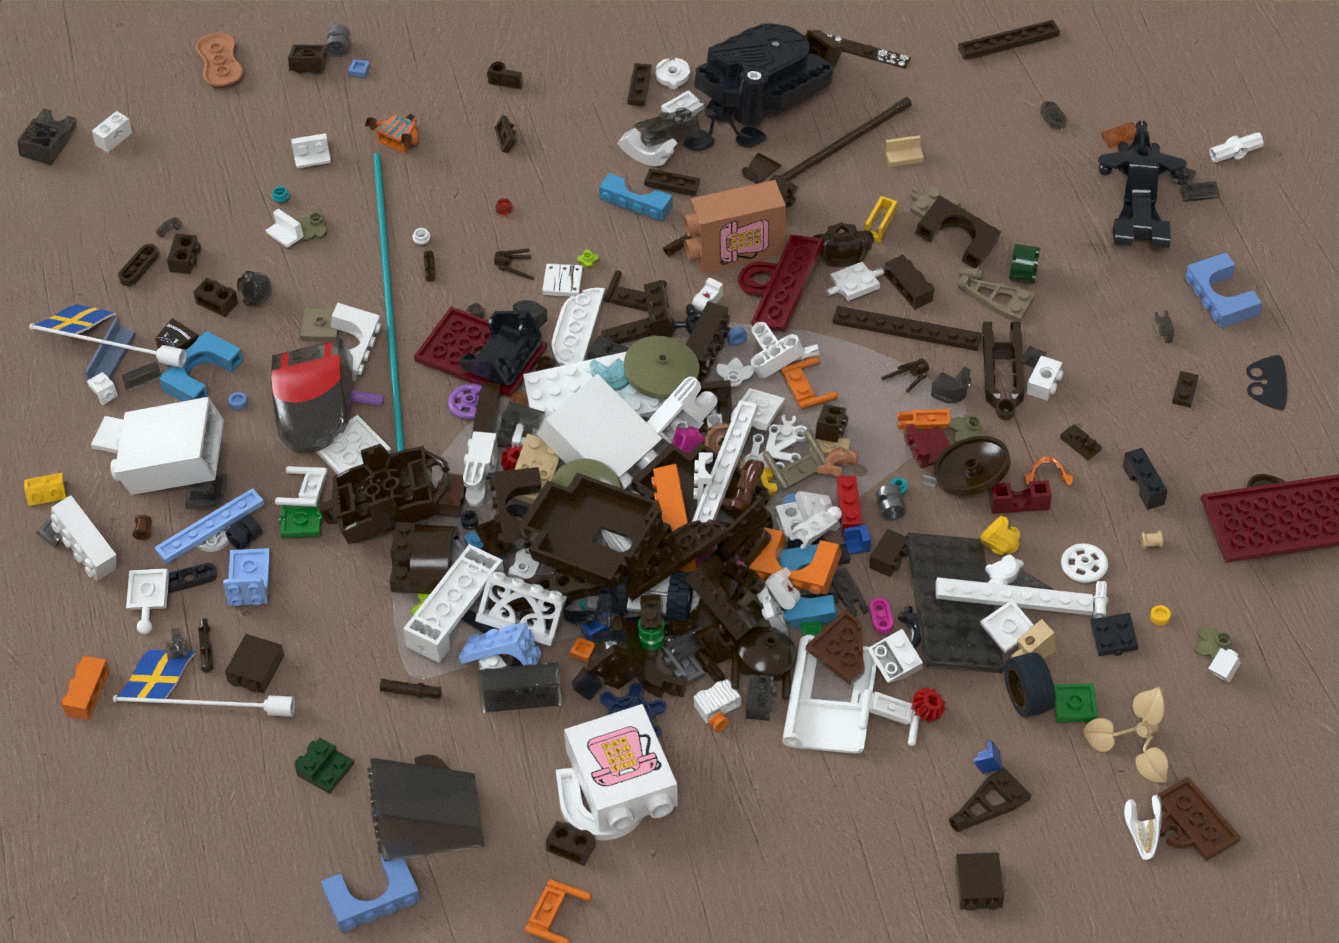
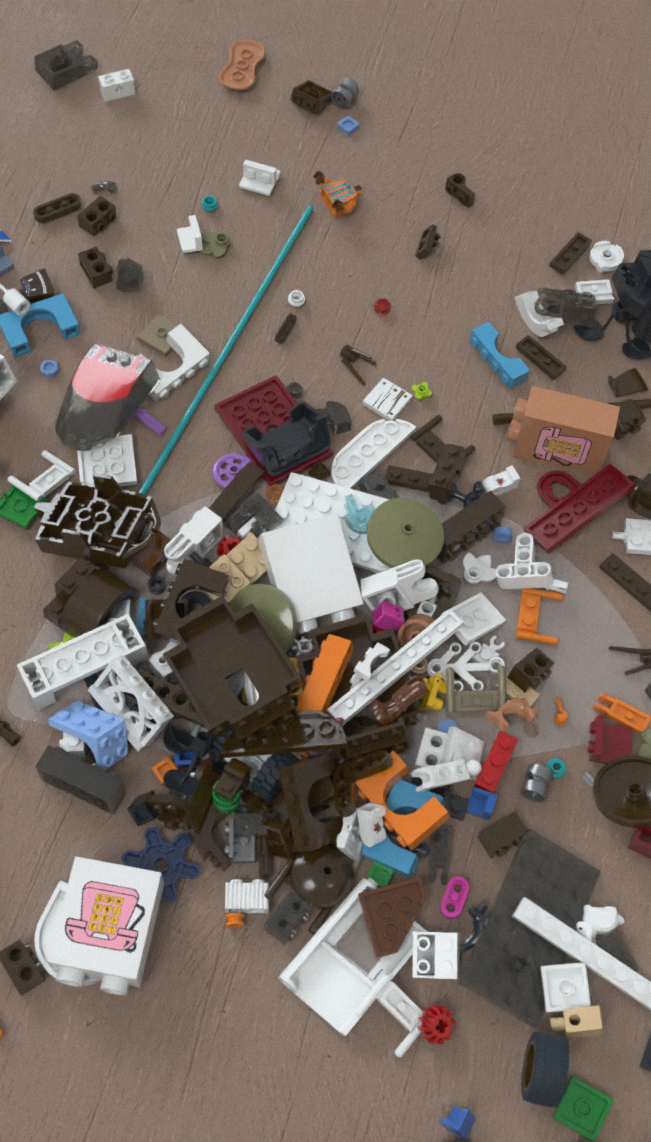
camera: 25 degrees right, 10 degrees up
(877, 445) = (561, 717): none -> orange hand
(1000, 538) = (616, 883): yellow helmet -> none

